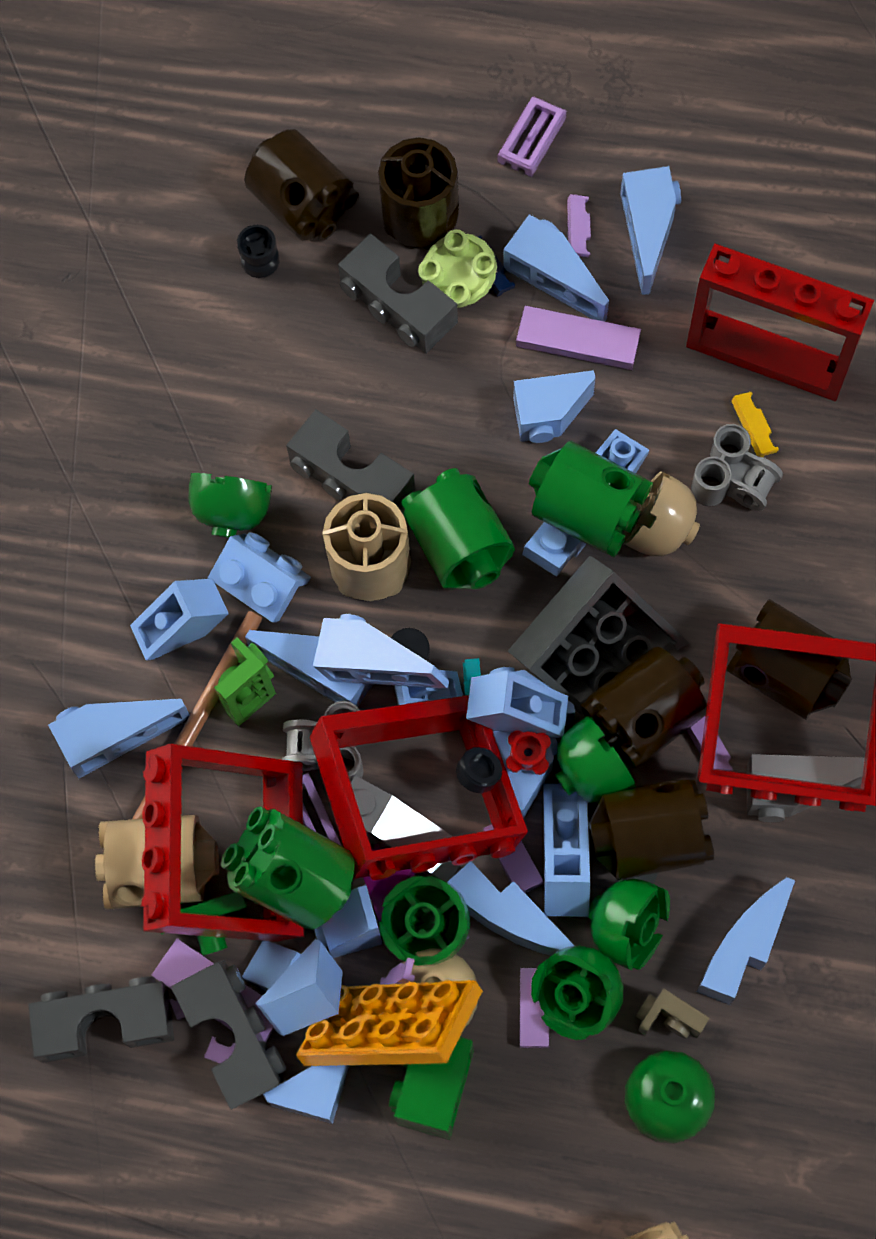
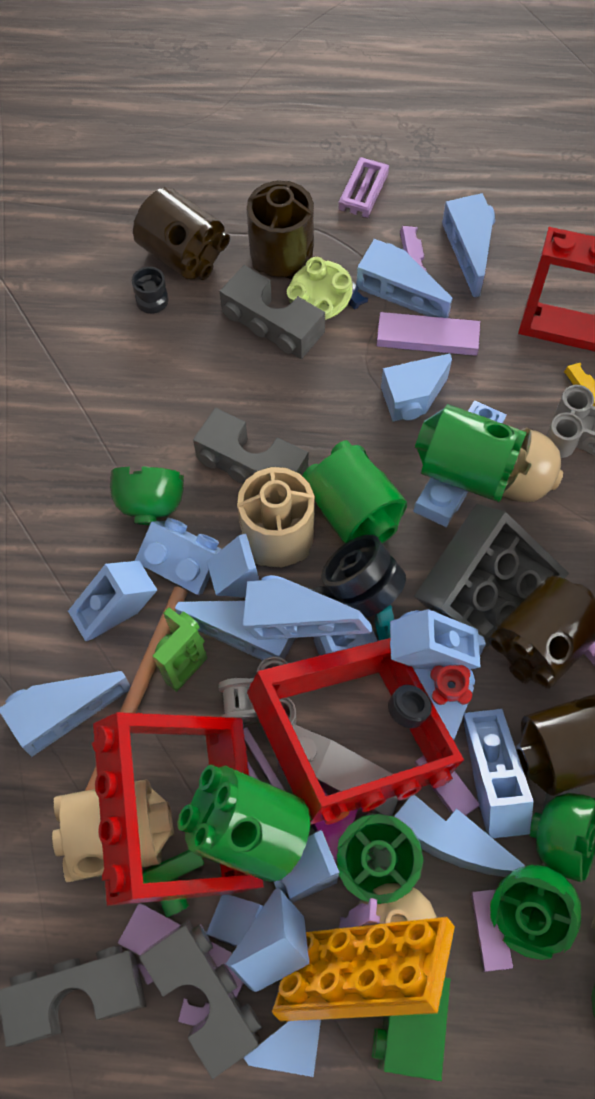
camera: 10 degrees left, 5 degrees down
(313, 599) = (233, 568): none -> light blue slope
(454, 623) = (364, 575): none -> black wheel
(590, 763) = (508, 689): green cylinder -> none

